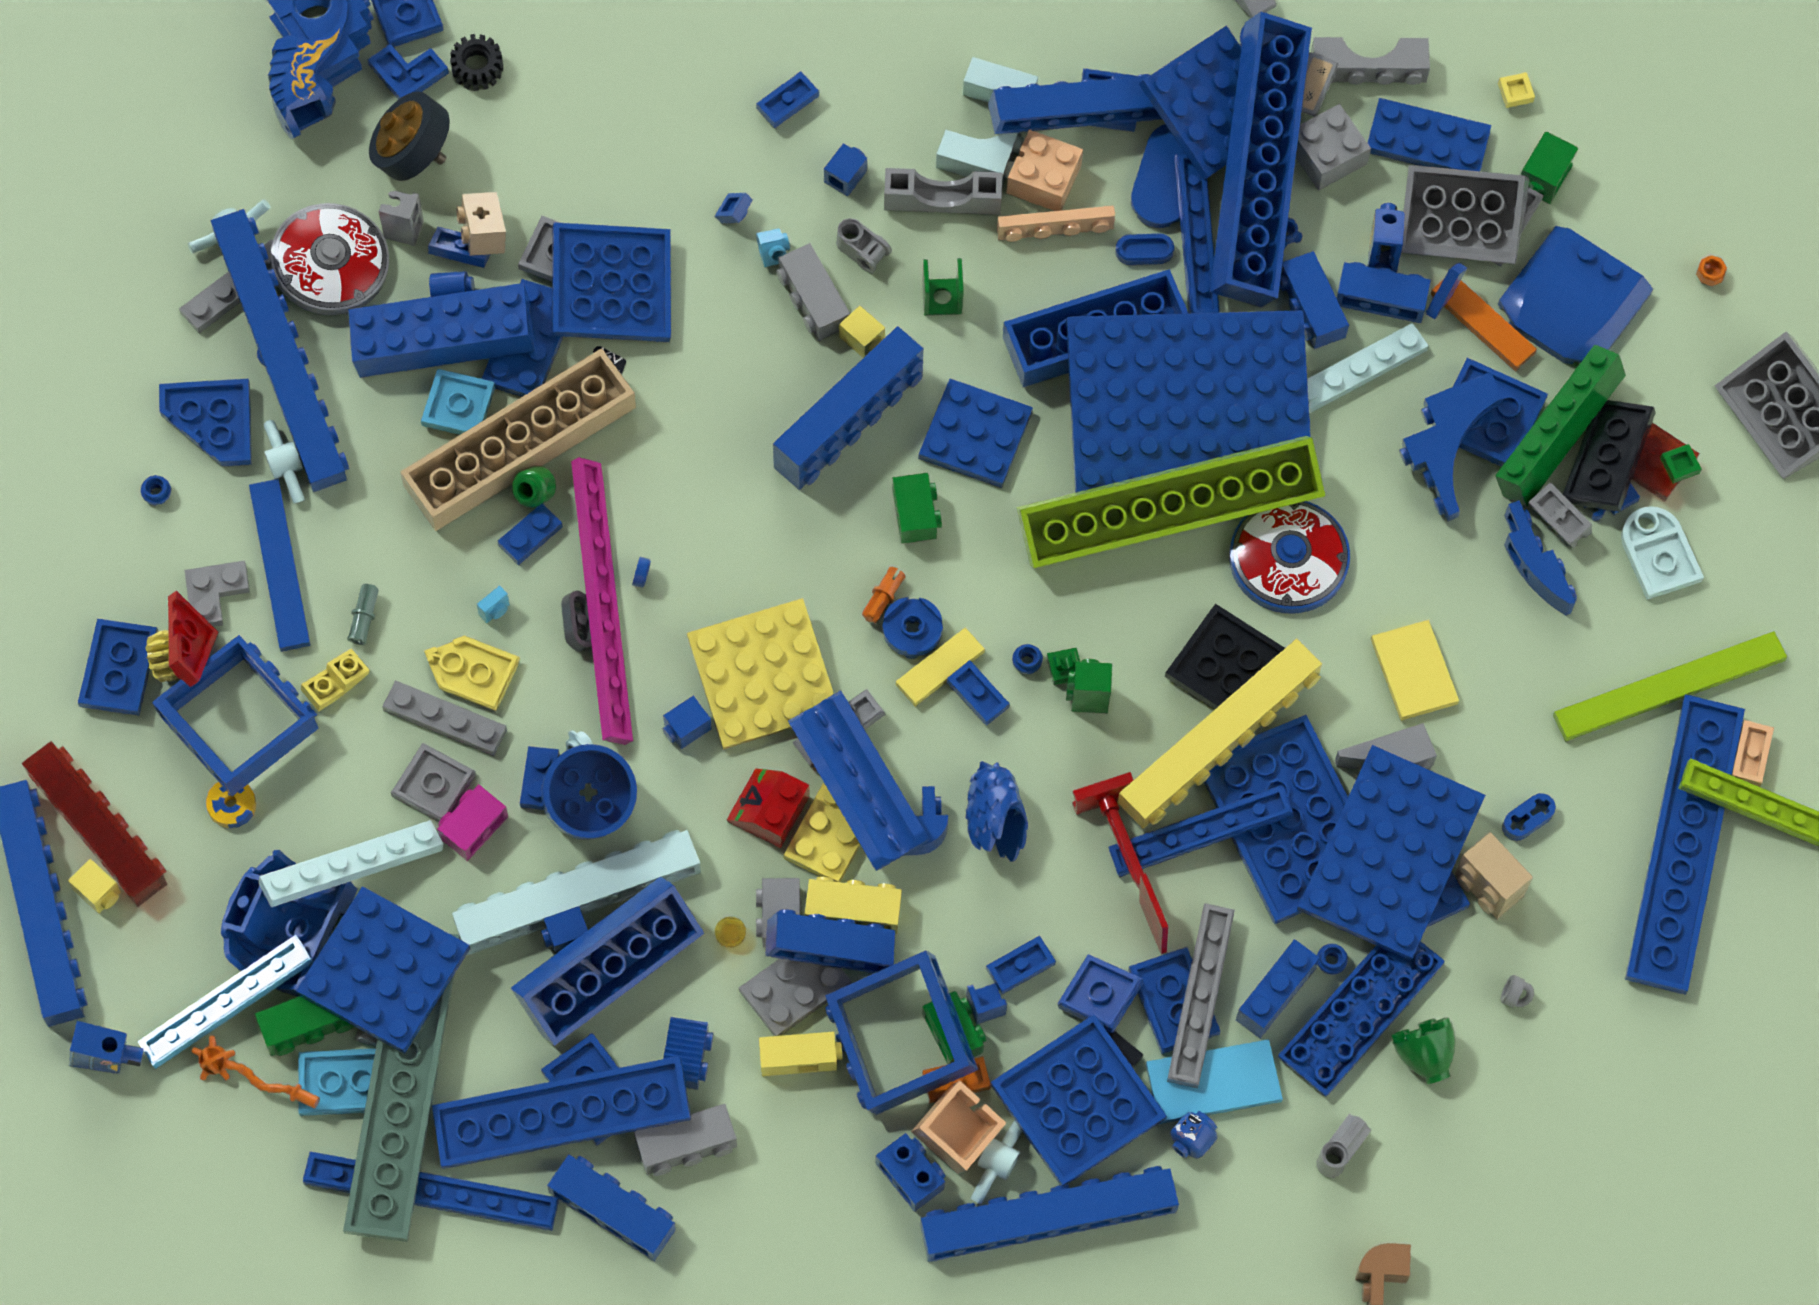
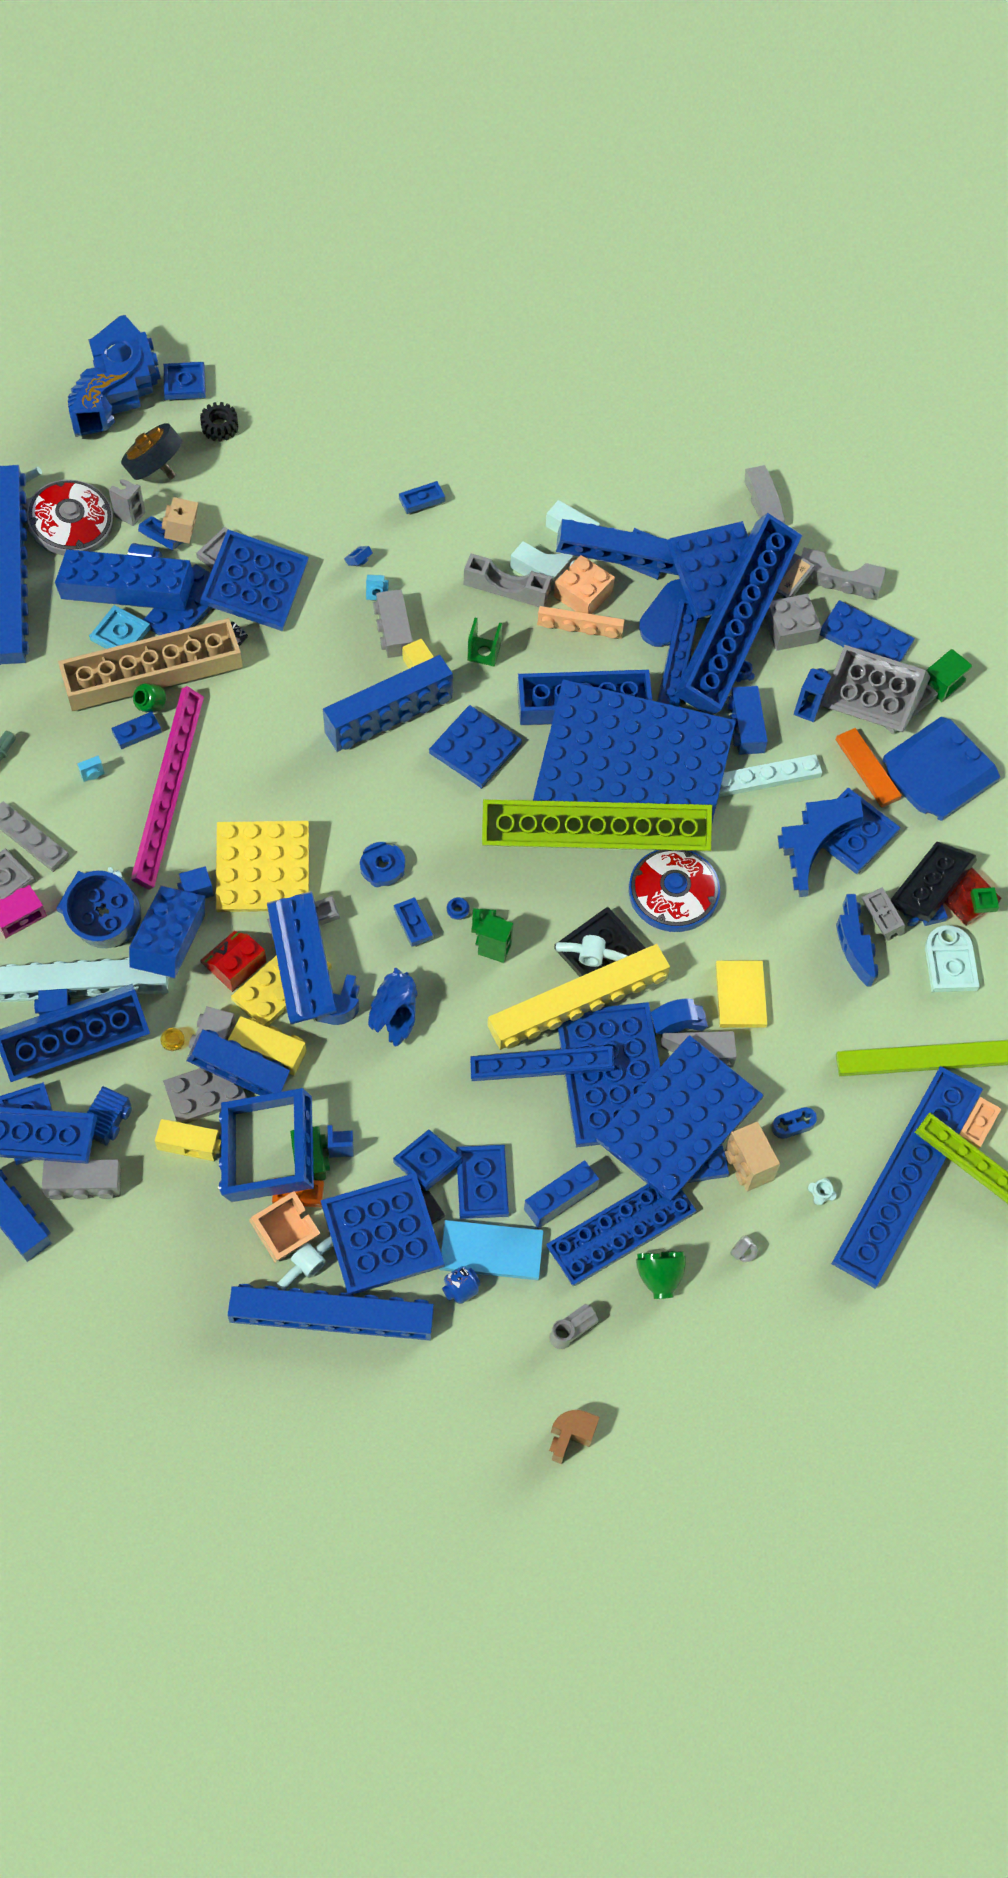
camera: 15 degrees right, 5 degrees down
(407, 77) = (178, 418): blue plate -> none
(473, 670) = (60, 810): light yellow tile -> none
(576, 620) = (142, 796): dark grey plate -> none
(641, 572) = (203, 775): blue tile -> none
(679, 796) = (167, 931): none -> blue brick
(845, 169) = (445, 550): blue brick -> none
(866, 248) = (440, 604): light grey piece -> none
(883, 595) = (369, 836): orange axle -> none
(910, 1171) = (239, 1251): blue brick -> none
(915, 507) = (412, 783): green brick -> none
(938, 666) = (384, 899): light yellow tile -> none
(1020, 965) = (375, 1122): blue plate -> none
(1105, 796) = (478, 1019): red piece -> none
(1144, 249) = (638, 656): blue tile -> none
(1200, 995) = (501, 1183): light grey tile -> none
(1216, 669) = (591, 950): none -> light aqua piece
(1332, 950) = (611, 1178): blue plate -> none
(1348, 723) = (678, 1015): none -> blue brick
(1383, 292) = (800, 727): blue brick -> none
(1446, 290) = (847, 736): blue tile -> none
(1516, 90) = (939, 620): light yellow plate -> none
(1560, 425) = (903, 850): green brick -> none
(1588, 884) = (825, 1185): none -> light aqua plate

